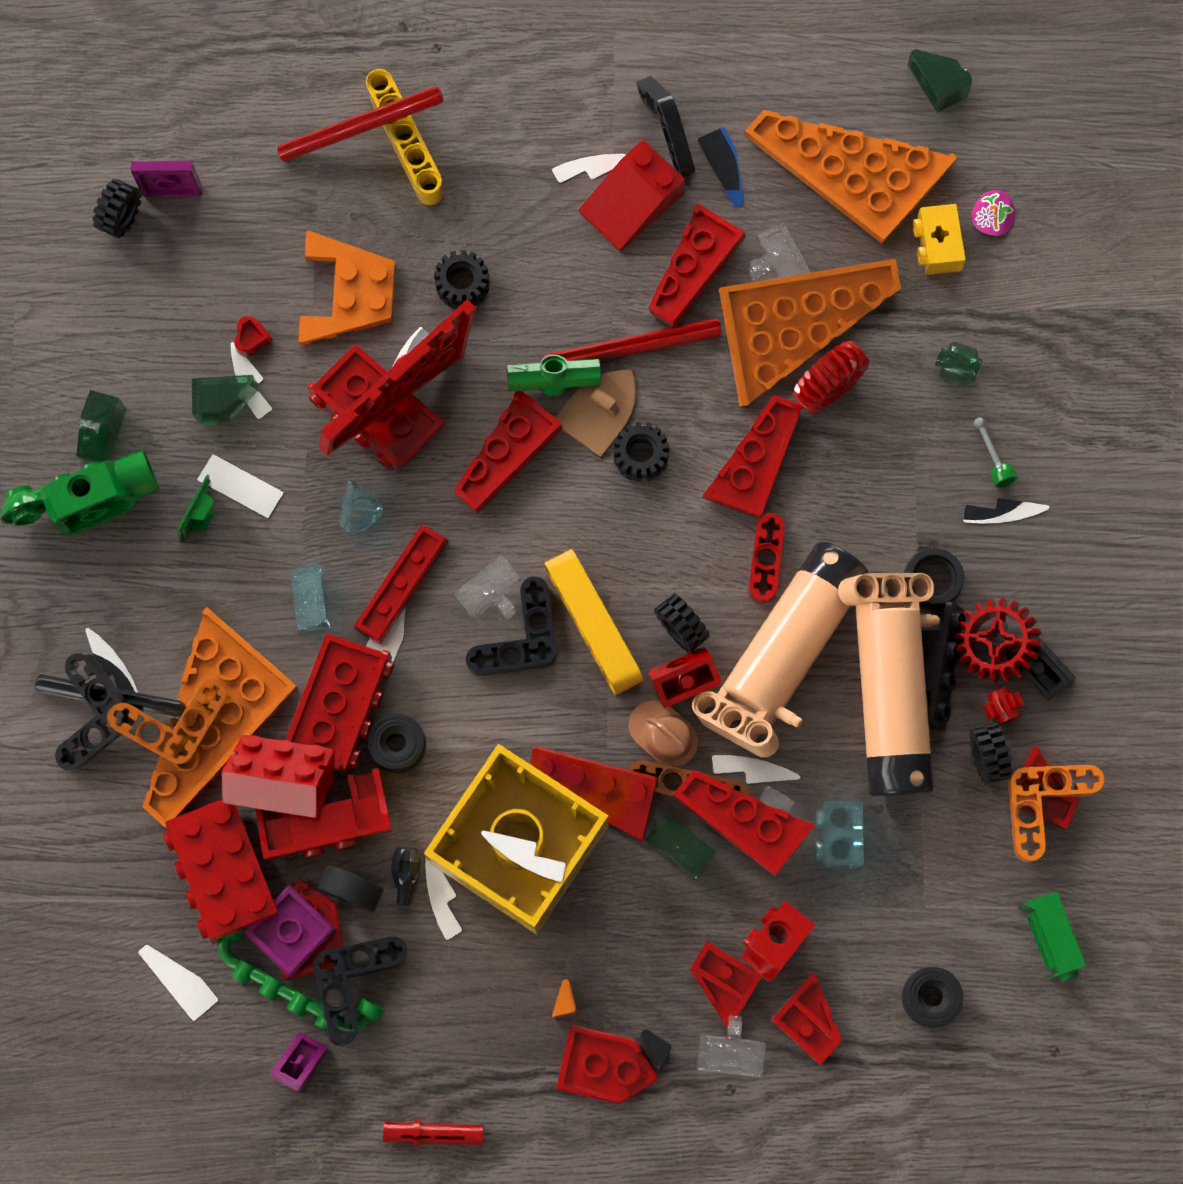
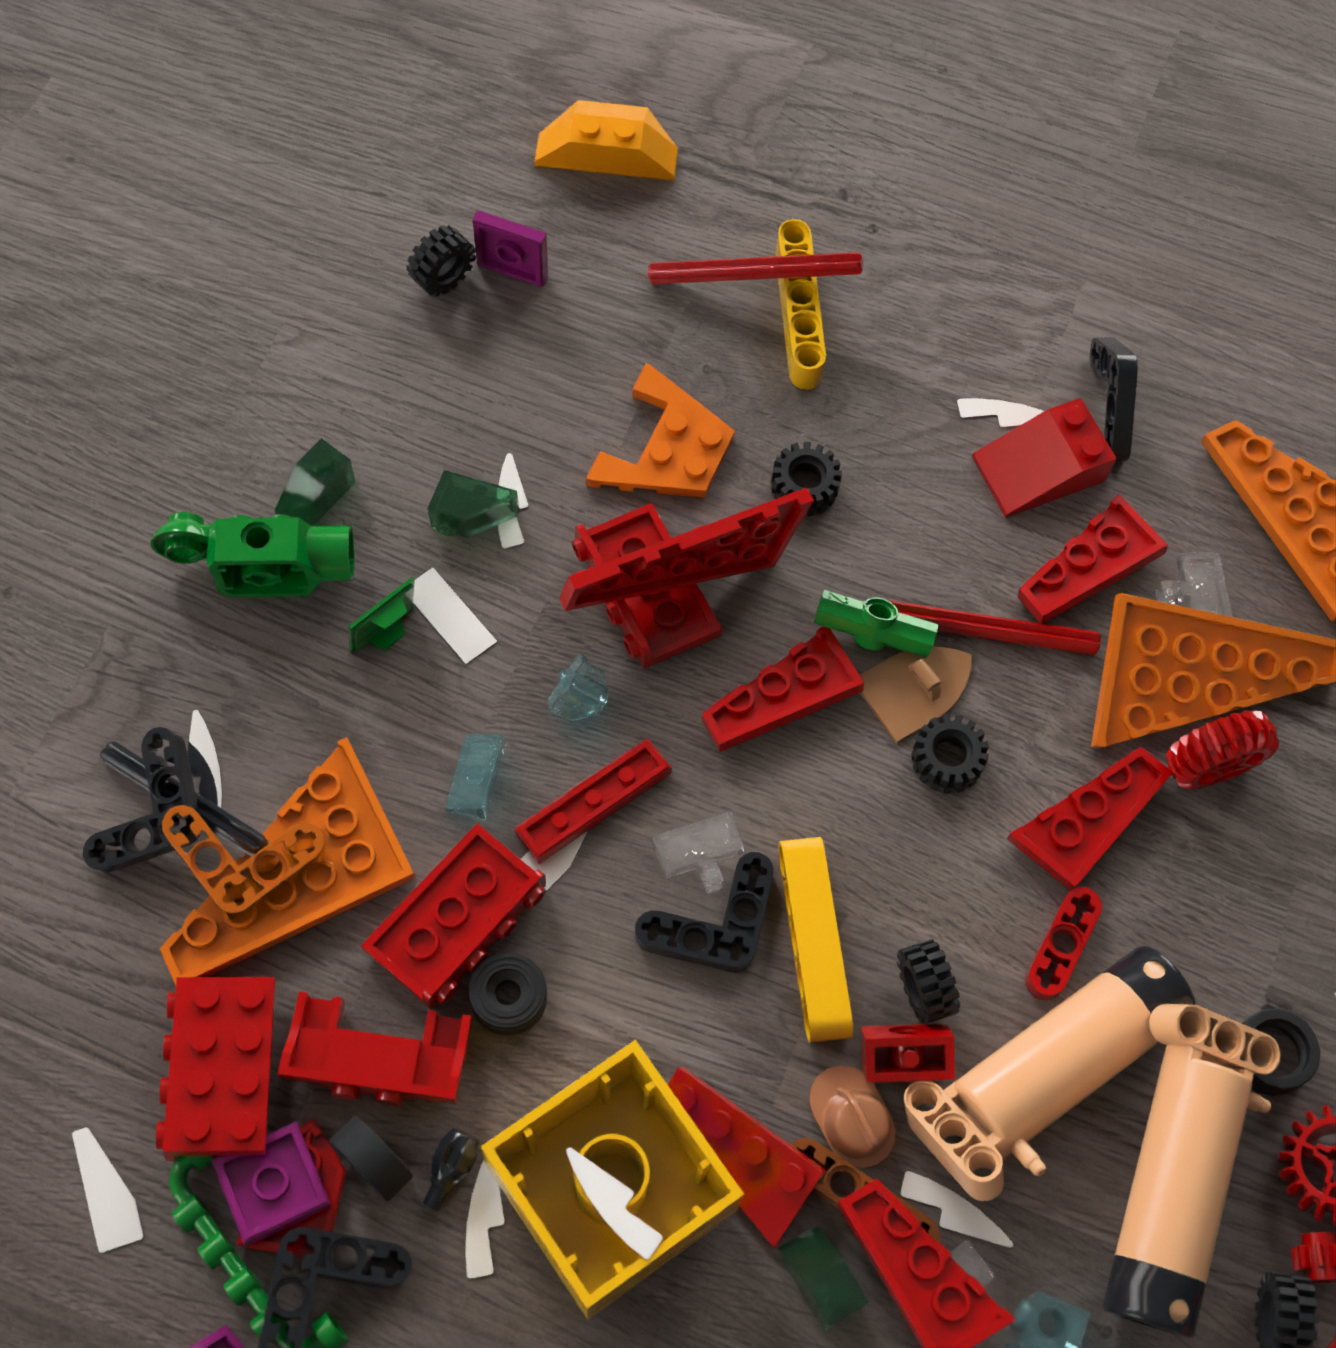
camera: 15 degrees right, 10 degrees down
(202, 51) = (608, 141): none -> light orange wedge
(250, 336) = (533, 453): red tile -> none
(278, 776) = (341, 975): red piece -> none
(724, 161) = (1166, 462): black sticker -> none
(940, 664) = (1252, 1168): black bracket -> none

